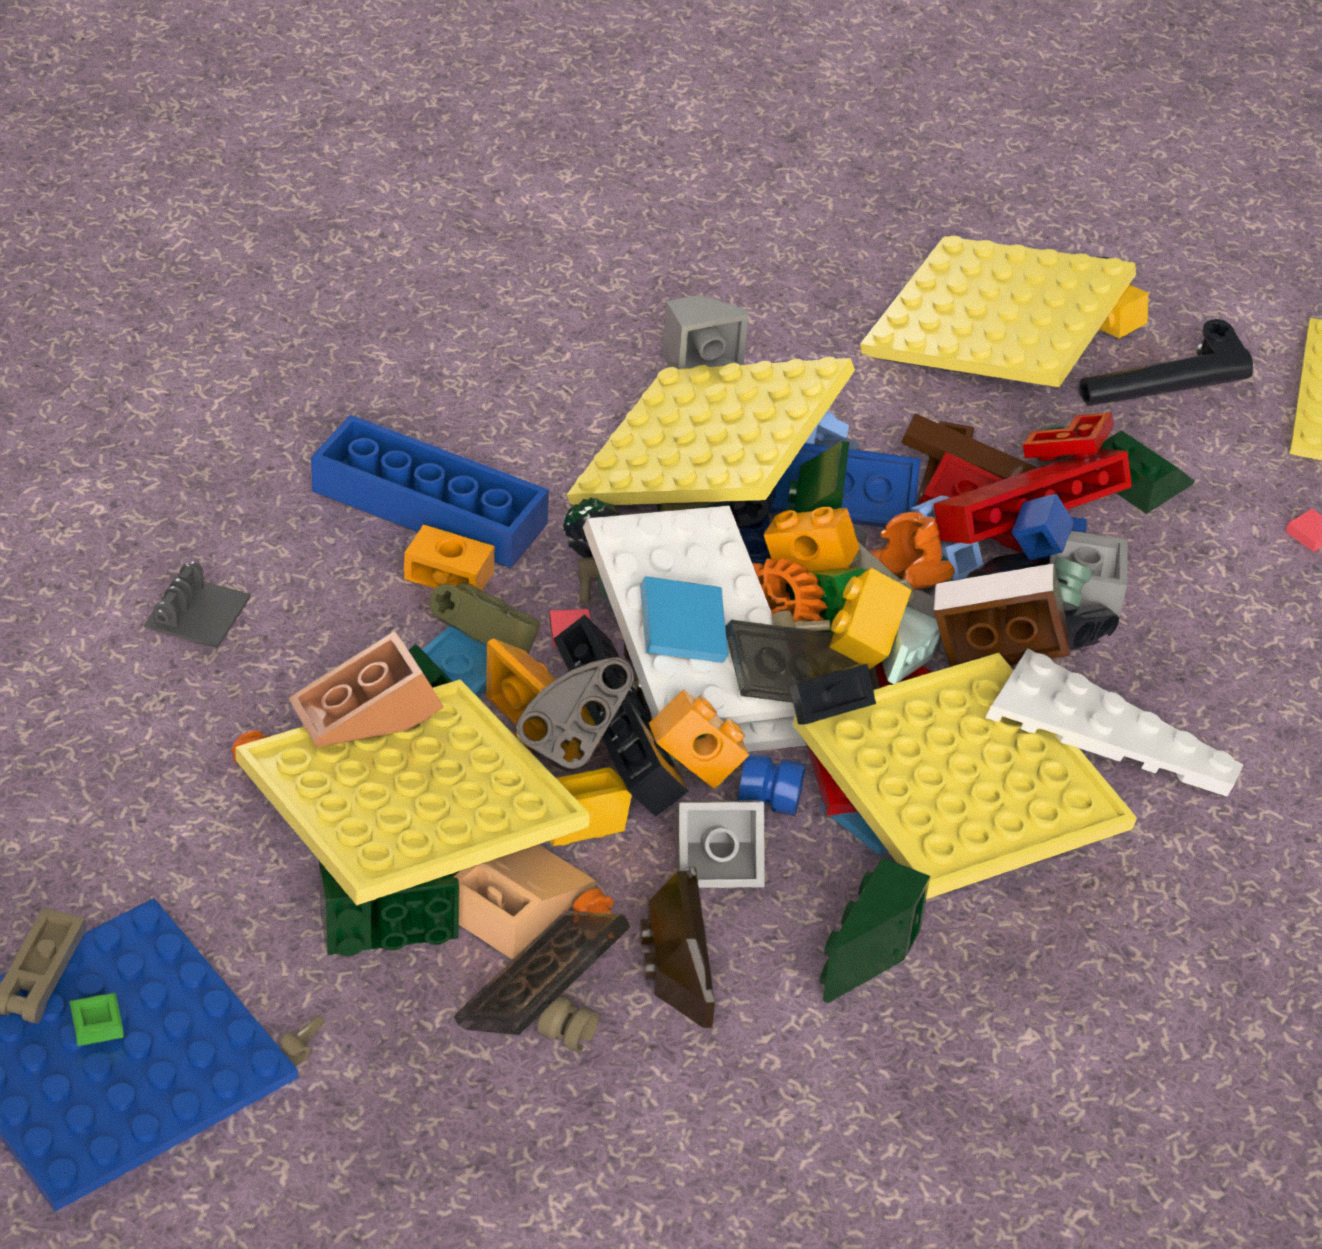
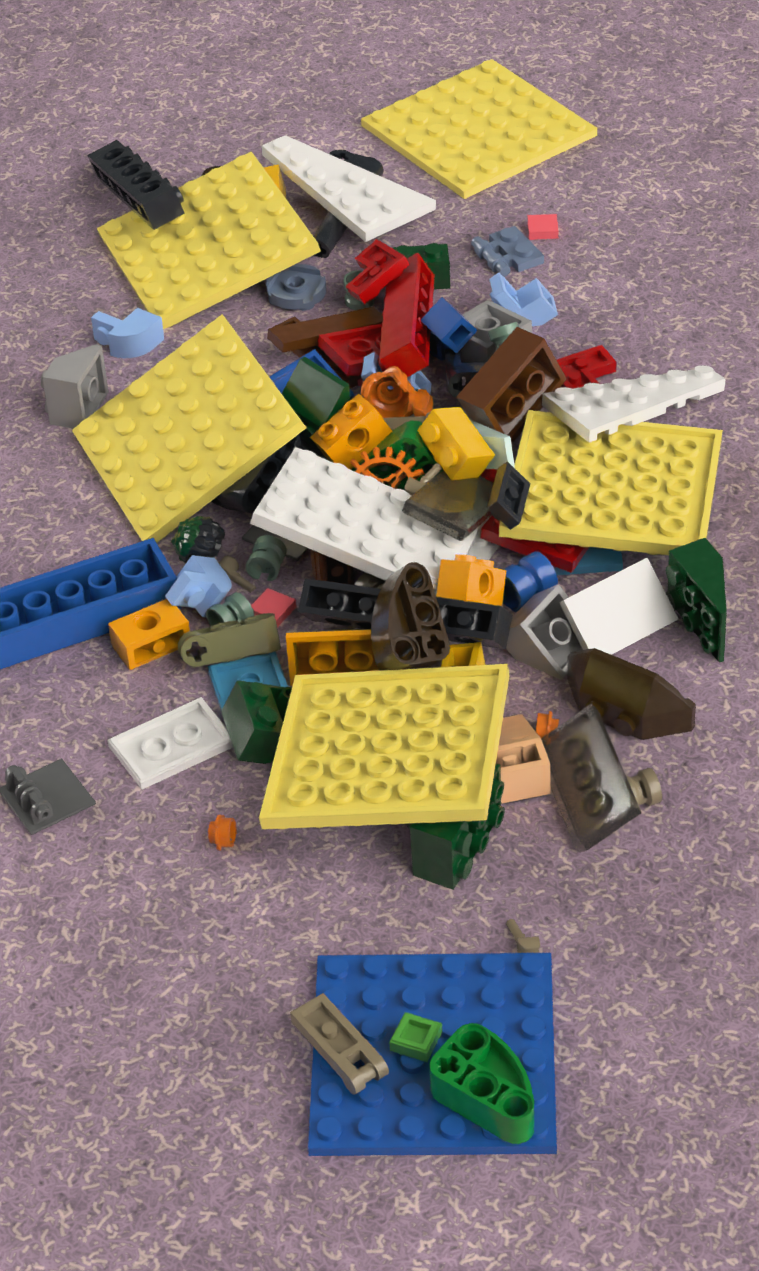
camera: 45 degrees left, 0 degrees up
(68, 1098) = (484, 1083): none -> green beam
(316, 646) = (171, 743): none -> white tile
(367, 696) = (285, 719): nougat slope -> none
(531, 561) = (199, 585): none -> light blue brick
(535, 599) = (233, 609): none -> sand green wheel
(683, 619) = (379, 524): dark azure tile -> none
(794, 874) = (619, 609): none -> white tile
(822, 335) = (128, 337): none -> light blue brick
(1008, 219) = (137, 184): none -> black brick
(1031, 409) = (283, 291): none -> sand blue plate
(1121, 664) = (586, 366): none -> red plate
(1163, 575) = (530, 301): none -> light blue brick
(1176, 363) = (352, 194): none -> white wing
(1255, 528) = (514, 251): none -> sand blue plate

